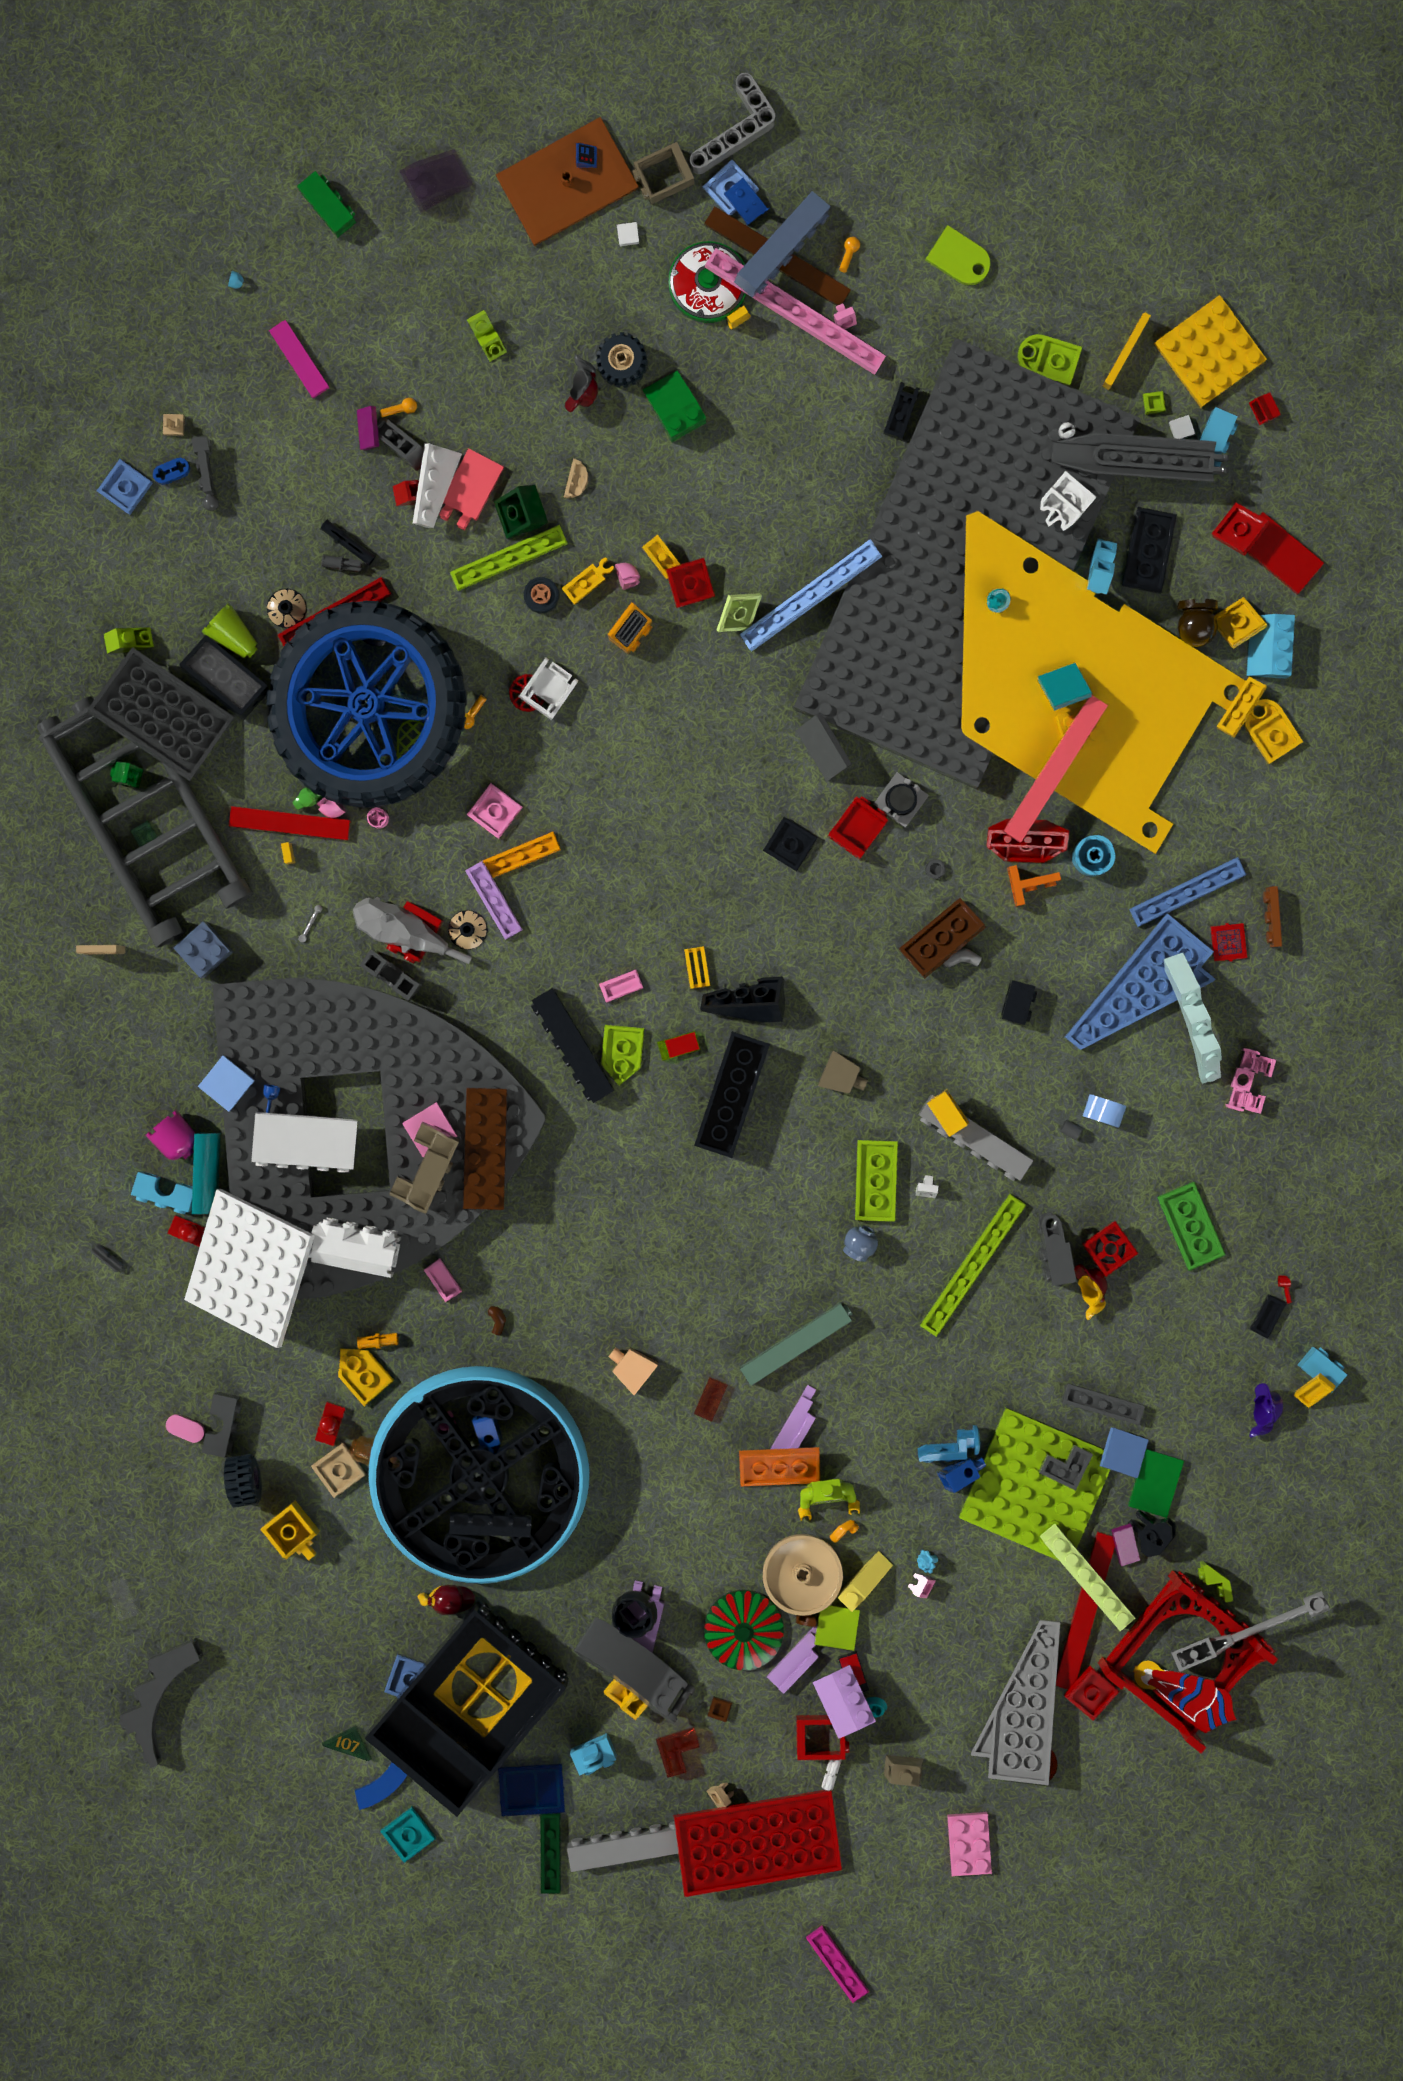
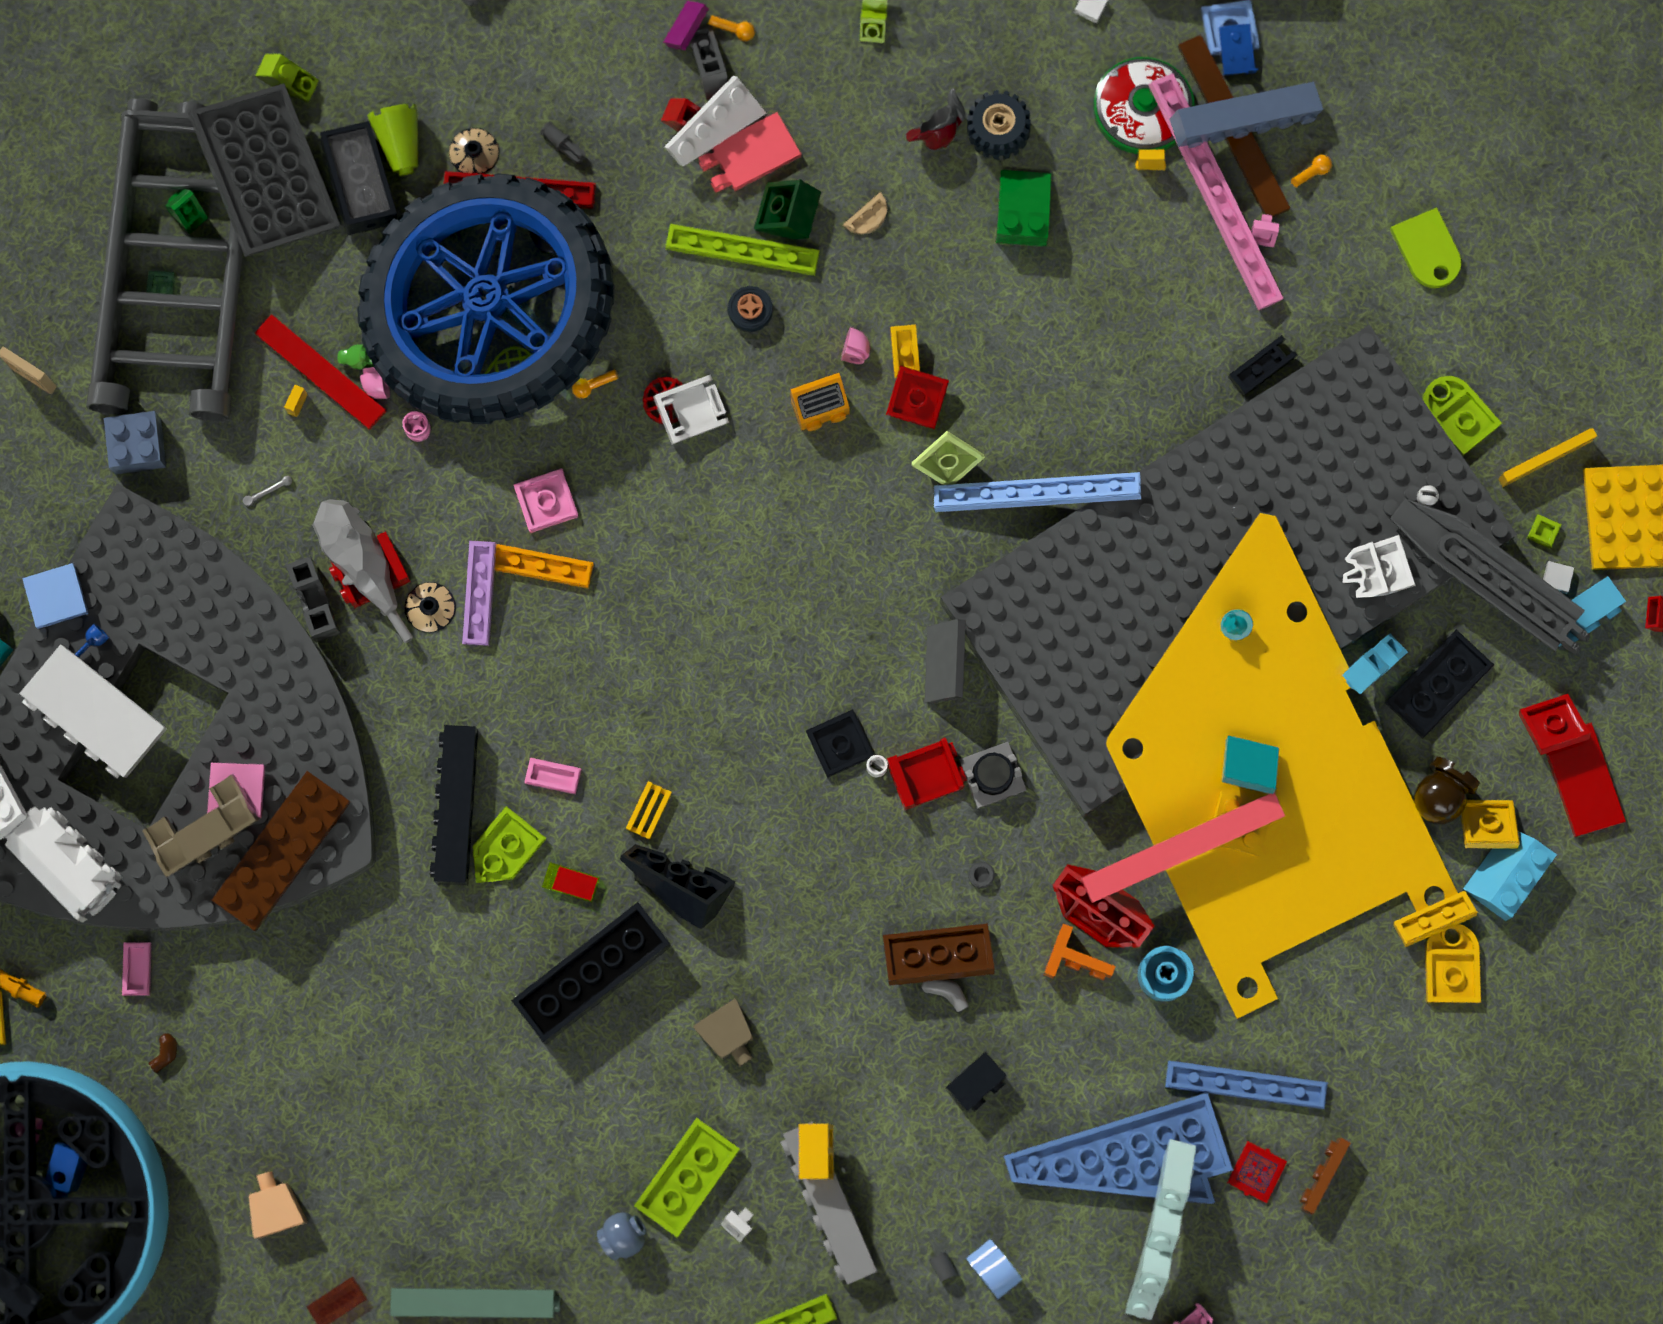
camera: 35 degrees right, 10 degrees down
(328, 528) = (575, 99): black pin -> none
(586, 581) = (808, 326): yellow plate -> none
(824, 839) = (880, 762): none -> white hinge

